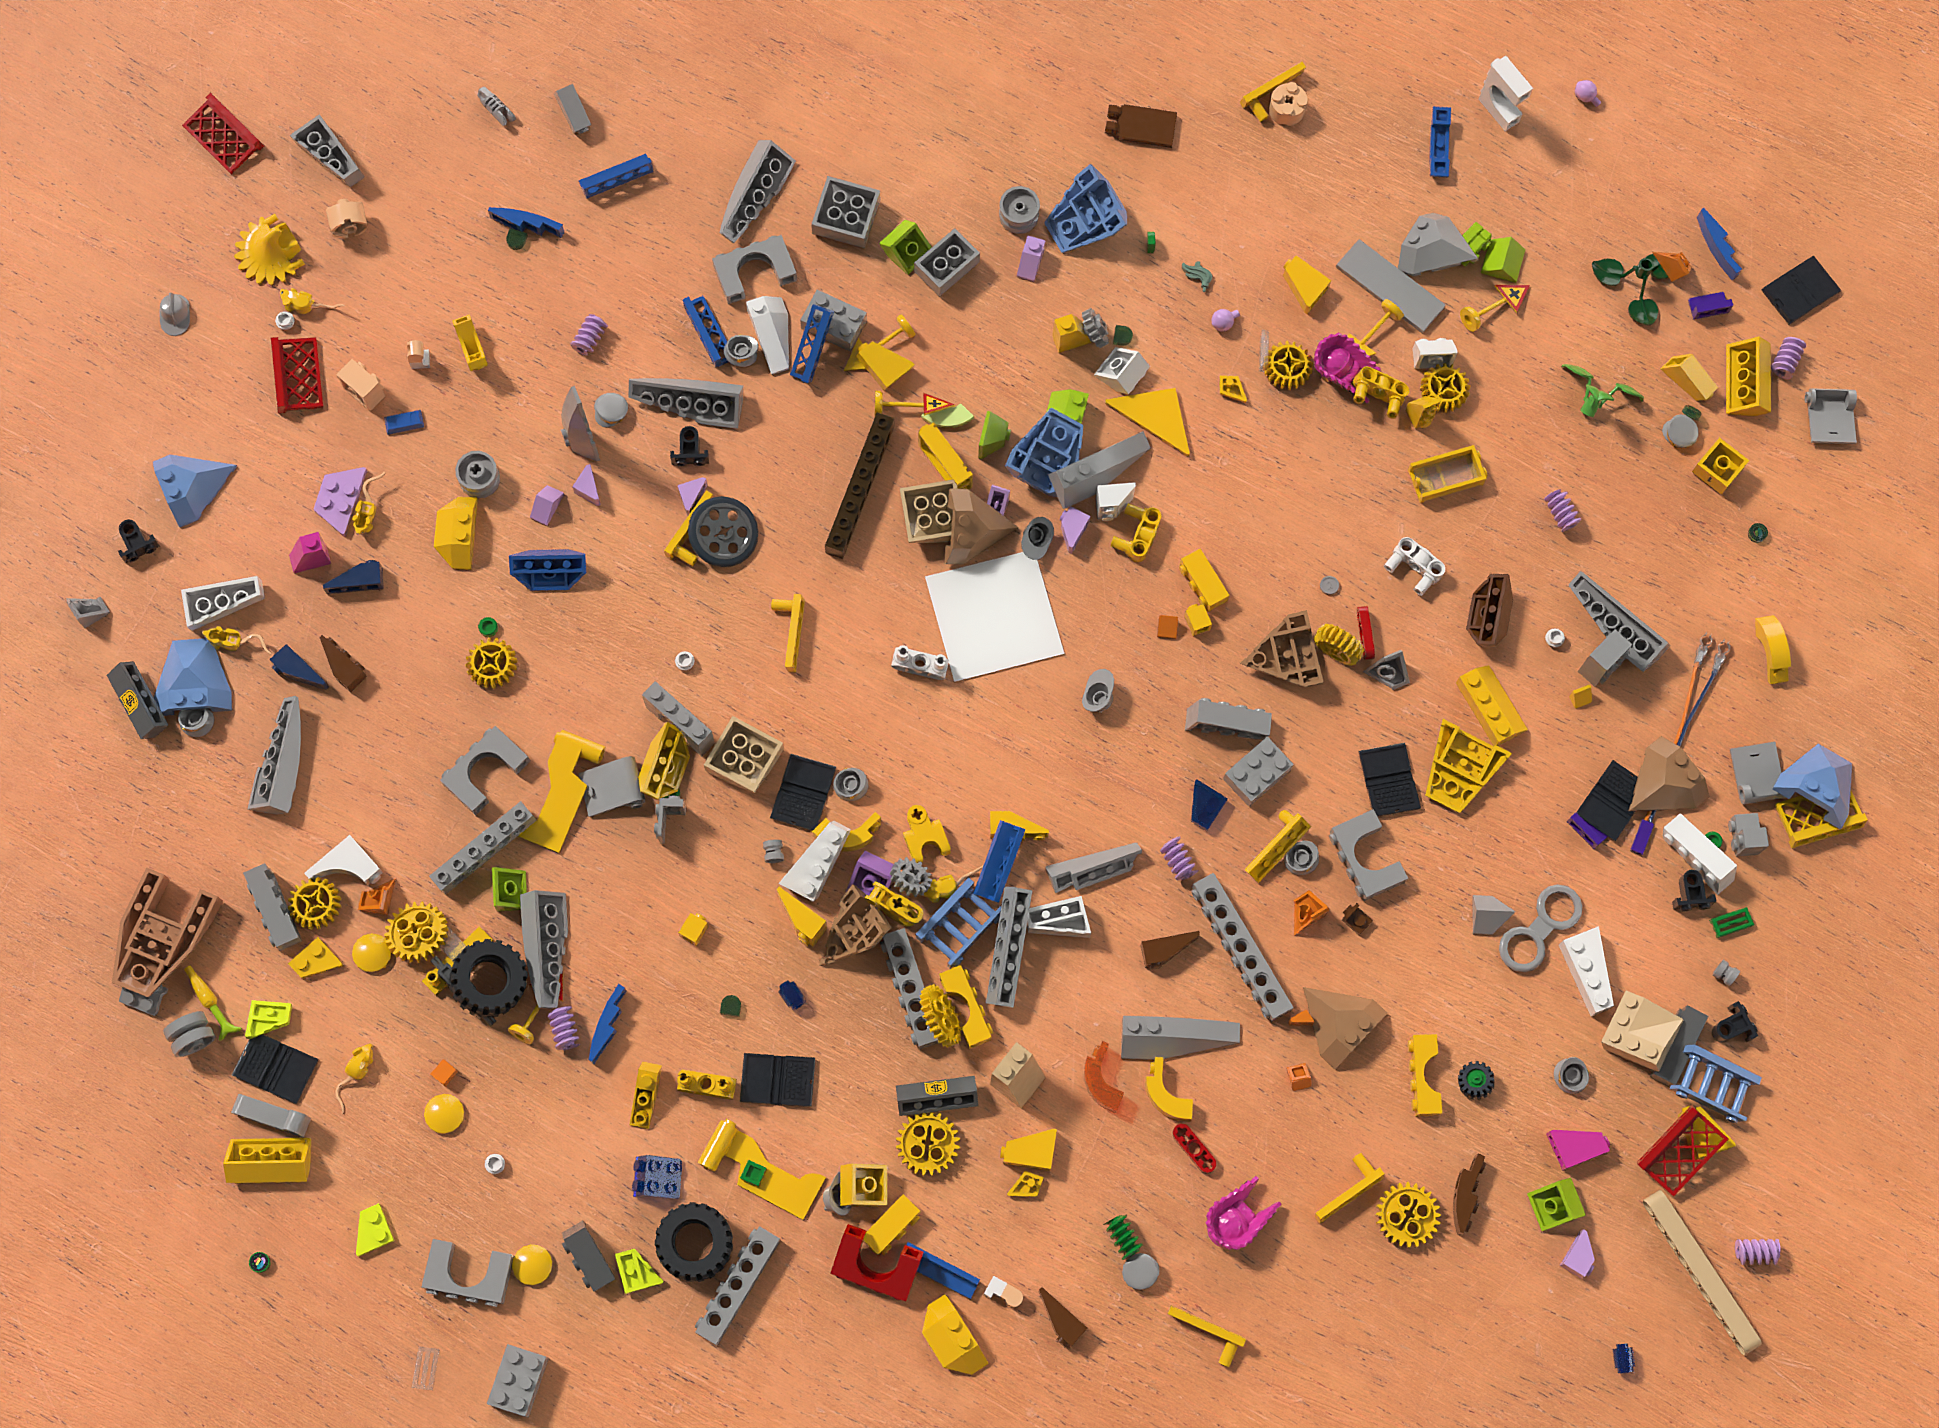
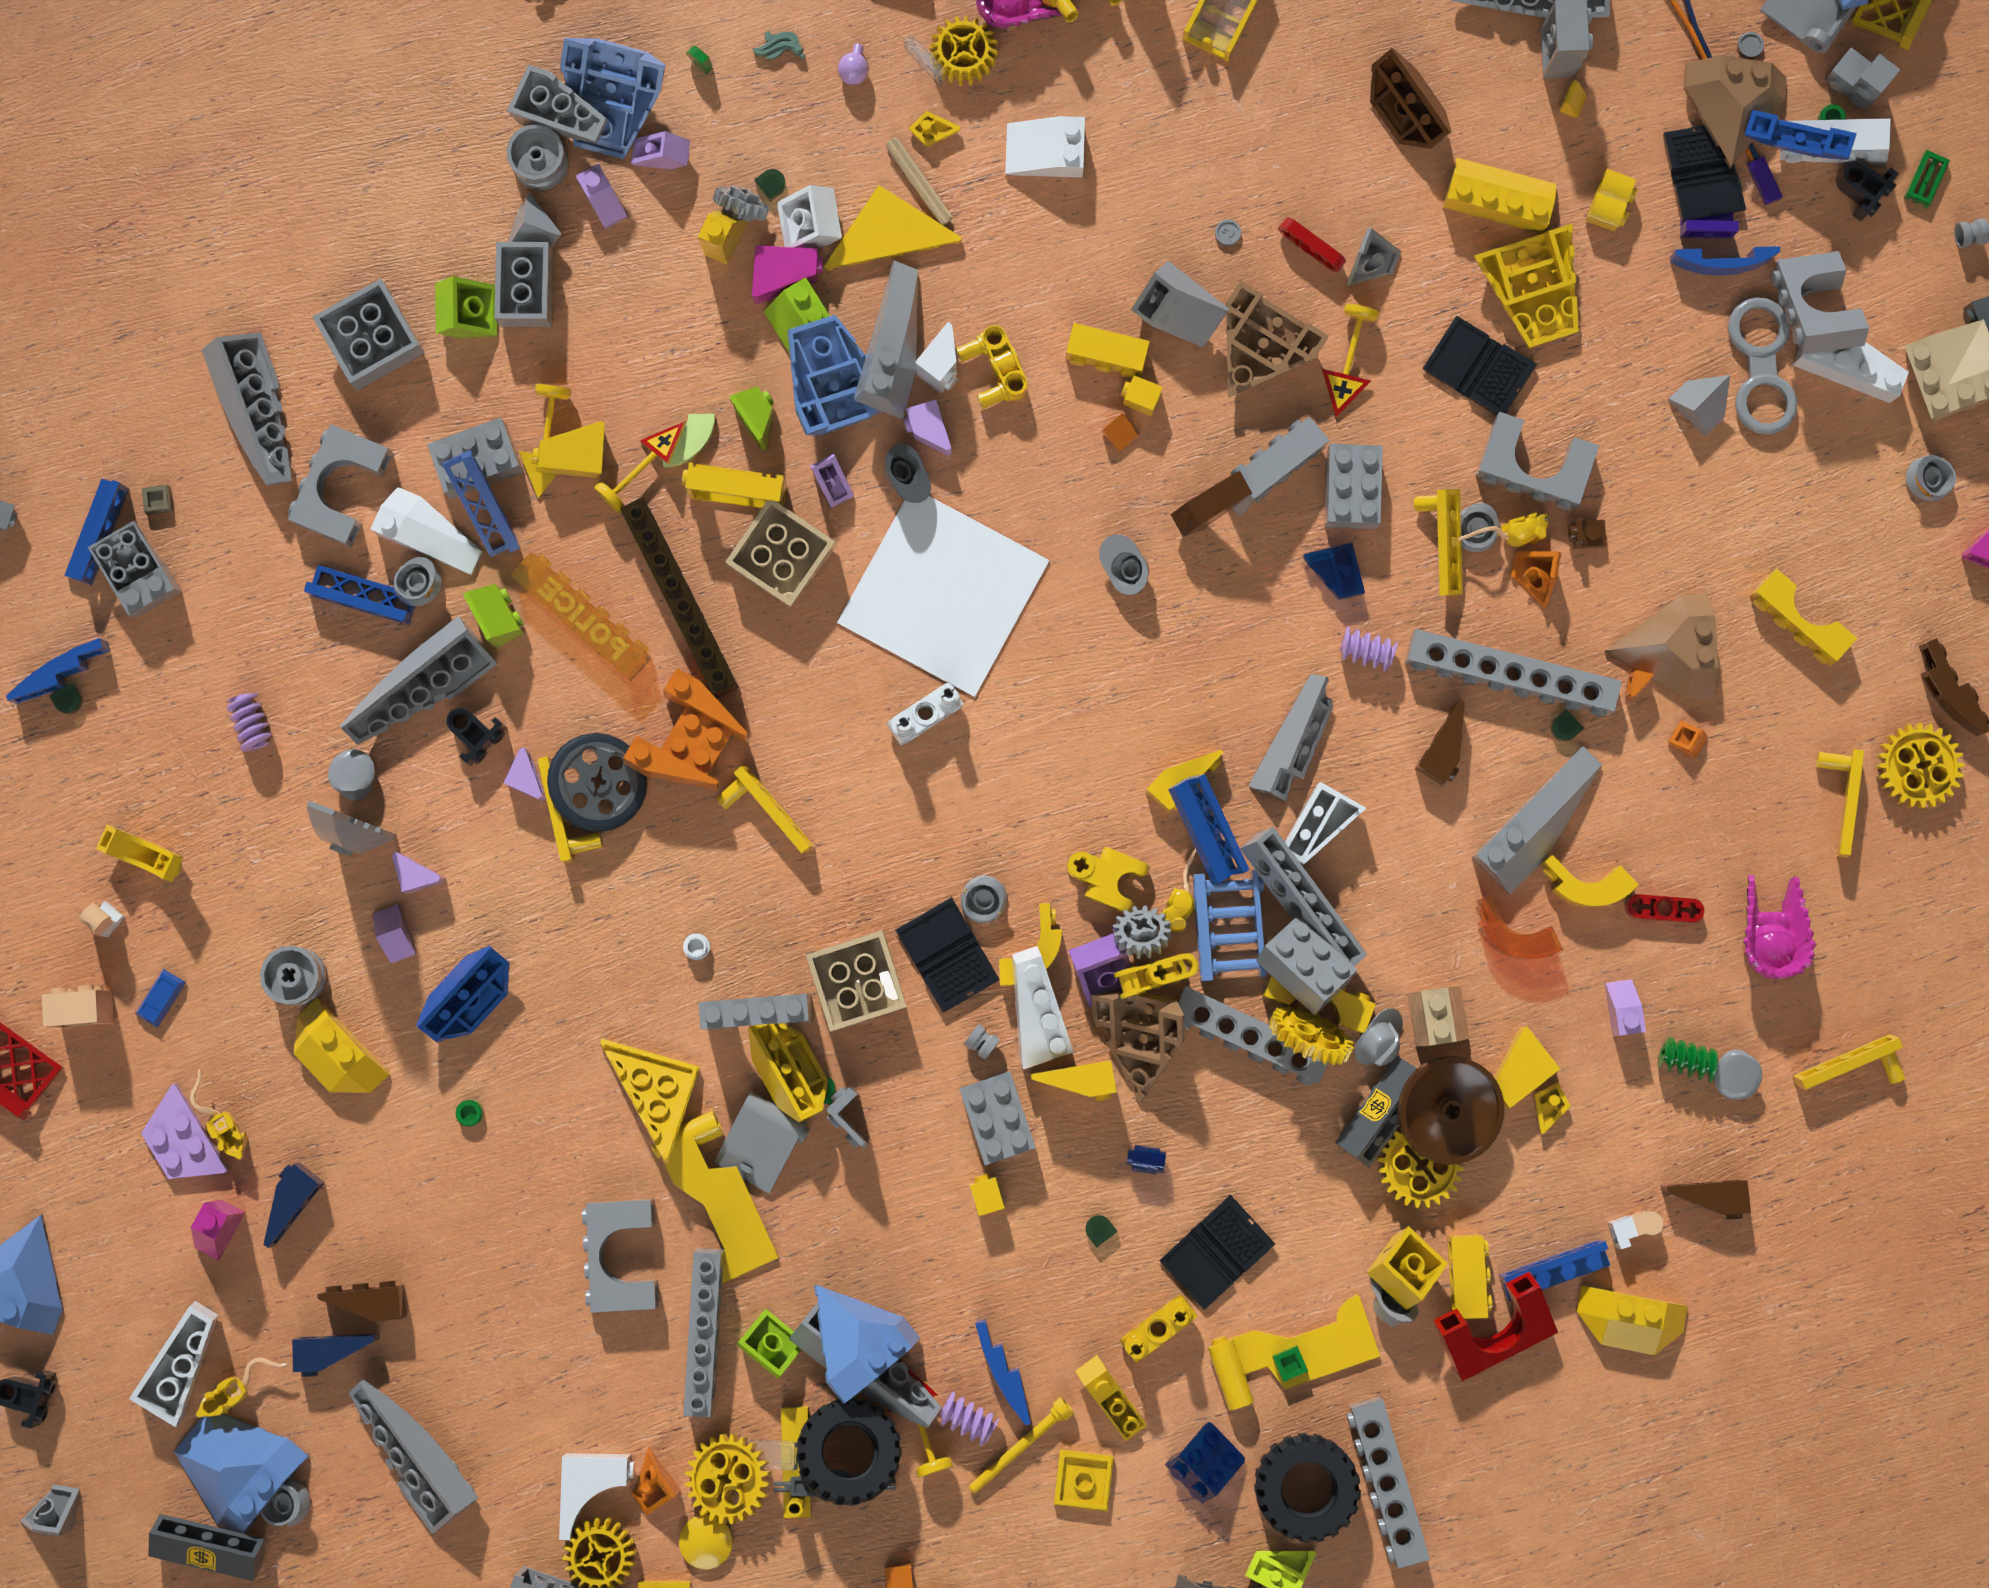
camera: 40 degrees left, 10 degrees up
(485, 668) = (512, 1158): yellow gear -> none
(553, 929) = (858, 1341): none -> medium blue wedge
(587, 1121) = (1083, 1480): none -> yellow tile
(589, 708) = (656, 1088): none -> yellow tile
(613, 210) = (134, 570): none -> light grey slope
(613, 1074) = (1059, 1412): none -> yellow piece
(661, 189) = (157, 499): none -> dark tan tile
(740, 896) = (997, 1118): none -> light grey brick
(761, 402) = (494, 614): none -> lime slope
(791, 560) = (693, 742): none -> orange wedge
(802, 446) = (581, 616): none -> clear yellow brick
(968, 1147) = (1472, 1116): none -> reddish brown dish
(974, 526) = (835, 524): medium nougat wedge -> none
(975, 978) = (1306, 965): none -> light grey brick
(975, 1058) = (1381, 1039): none -> light grey piece
(983, 239) = (533, 224): none -> light grey slope
(1052, 189) = (550, 103): none -> light grey wedge
(1082, 377) = (782, 267): none -> dark pink slope
(1083, 266) = (661, 151): none -> lavender slope
(1118, 1176) = (1624, 1008): none -> lavender slope
(1172, 704) = (1211, 504): none -> reddish brown slope
(1197, 406) = (919, 181): none -> tan axle
(1241, 1004) = (1565, 726): none -> clear green tile
(1263, 593) = (1179, 306): none -> light grey slope
(1280, 453) = (1046, 147): none -> white slope
(1307, 719) = (1342, 386): none -> yellow piece
(1321, 879) = (1519, 530): none -> yellow animal
(1339, 644) = (1302, 283): yellow gear -> none
(1419, 560) = (1290, 119): white piece -> none
(1476, 1080) = (1853, 573): black wheel -> none
(1547, 765) = (1611, 200): none -> yellow brick
(1554, 637) = (1490, 66): white plate -> none
(1571, 856) = (1692, 261): none -> blue slope
(1583, 930) = (1812, 328): none -> light grey arch
(1678, 827) = (1800, 138): none -> blue slope
(1707, 762) = (1750, 45): none -> light grey piece

